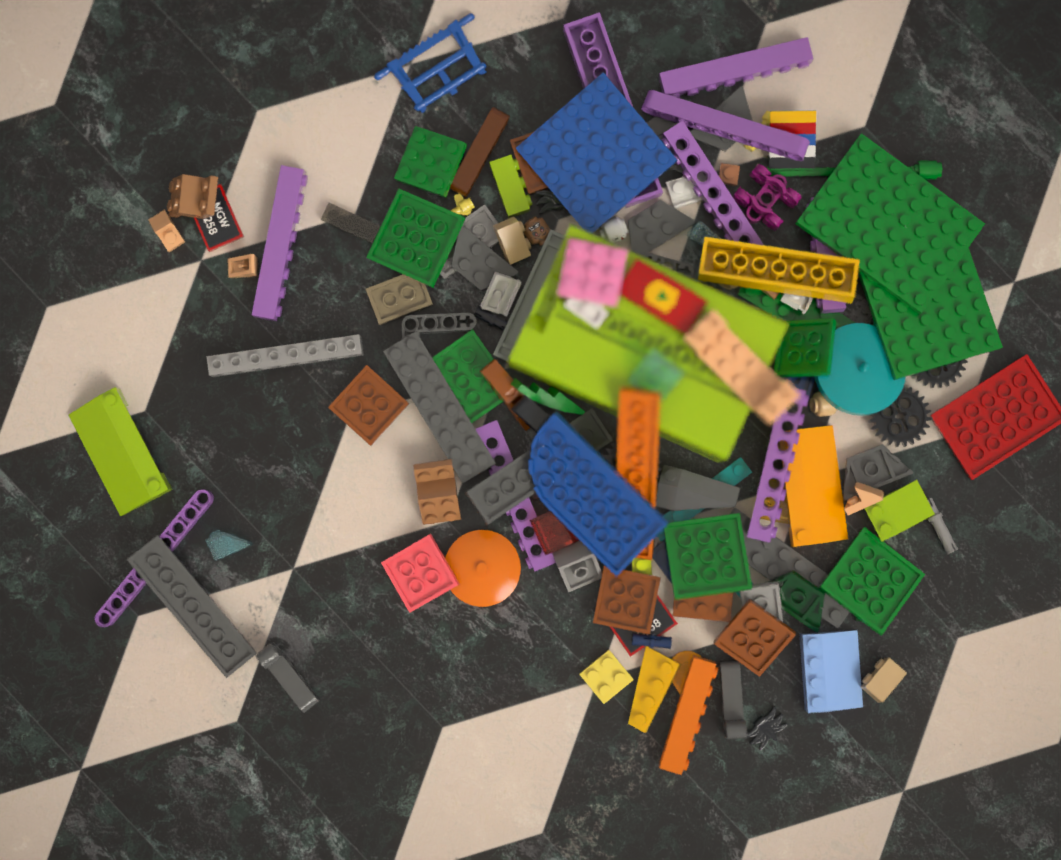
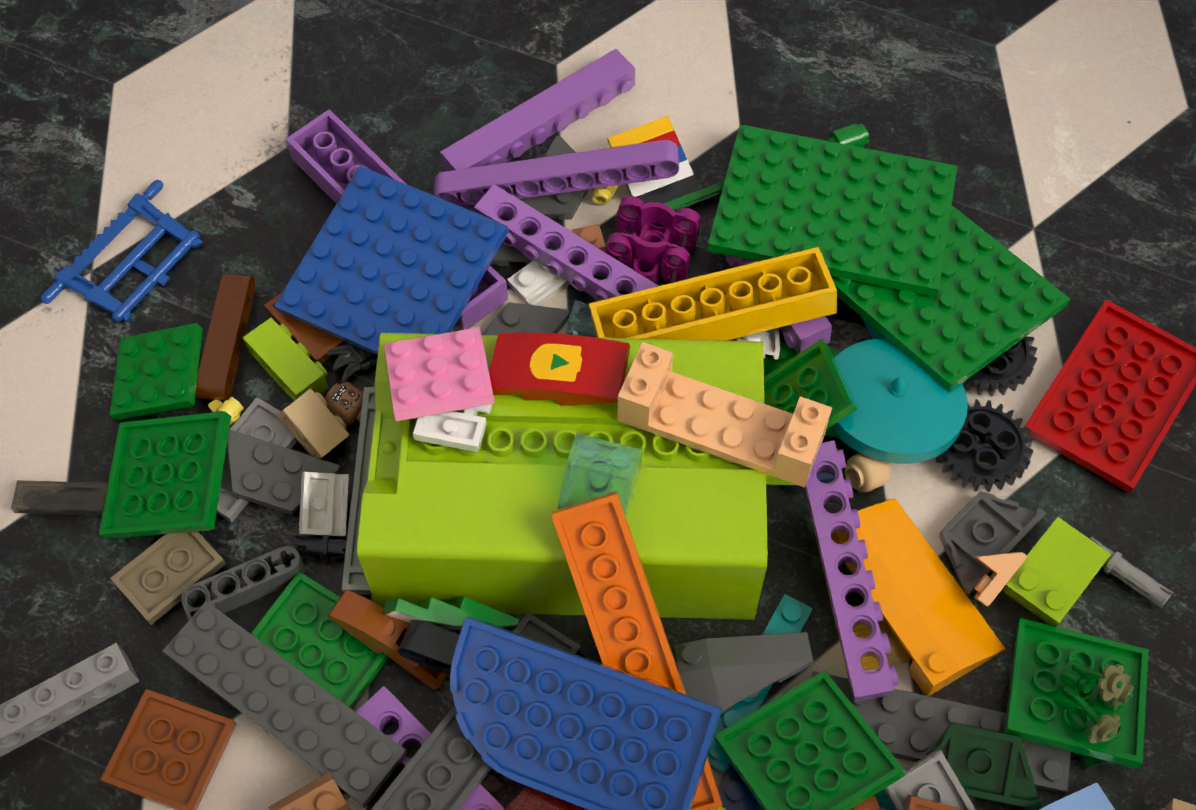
camera: 20 degrees left, 25 degrees down
(885, 591) = (1112, 684): none -> plant

